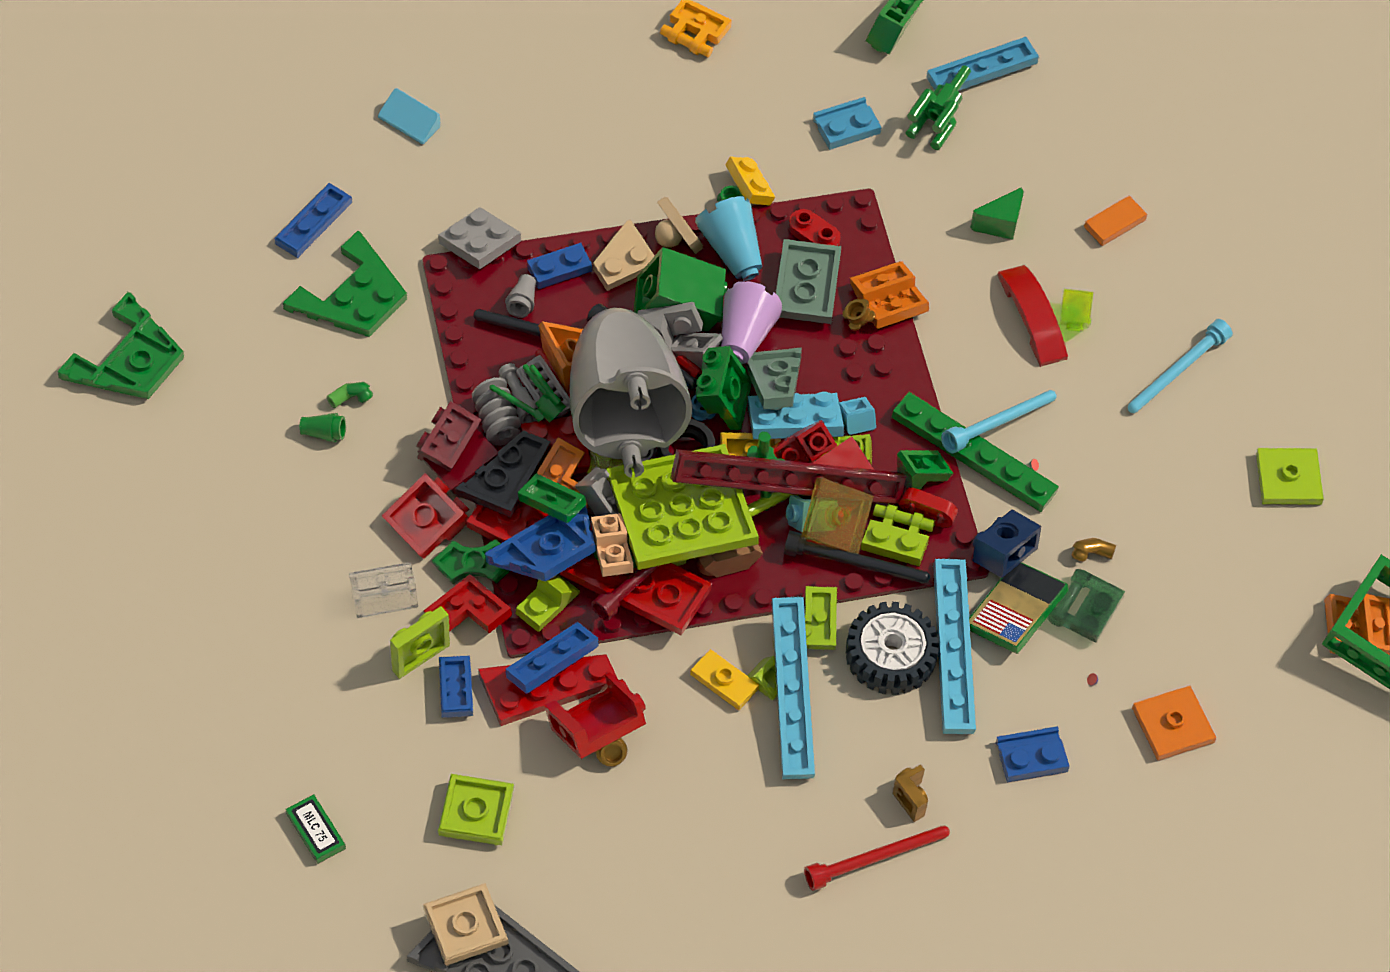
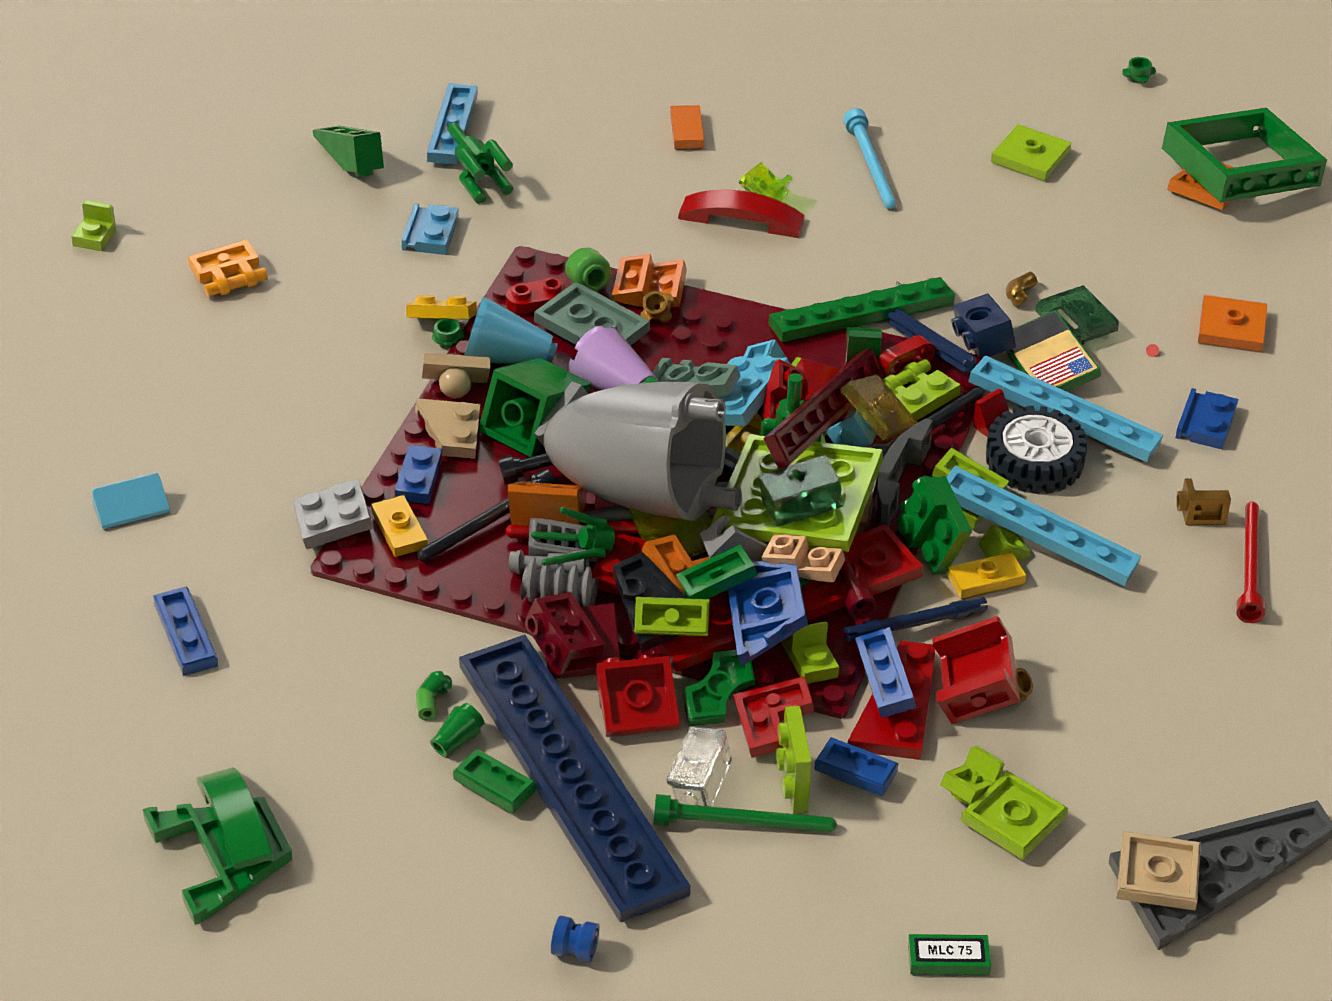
camera: 55 degrees left, 15 degrees down
(152, 339) = (236, 817): none -> green slope
(177, 594) = (575, 938): none -> blue wheel
(292, 474) = (494, 781): none -> green plate
(326, 518) = (575, 779): none -> dark blue plate
(334, 589) = (669, 810): none -> green piece
(360, 301) = (320, 634): green wing -> none
(489, 492) = (671, 616): none -> lime slope
(490, 764) = (973, 777): none -> lime bracket
(496, 283) = (399, 525): none -> yellow plate
(521, 298) = (437, 513): light grey cone -> none
(663, 504) = (800, 491): none -> clear green brick
(667, 675) = (954, 610): none -> dark blue piece
(730, 606) = (934, 522): none -> green plate
(785, 558) = (908, 448): none -> dark grey slope
(862, 247) = (588, 268): none -> bright green head
(913, 594) = (988, 409): none -> red slope
(957, 437) = (853, 300): medium azure piece -> none
(965, 516) = (943, 347): none -> dark blue axle
(999, 216) = (629, 181): green slope -> none

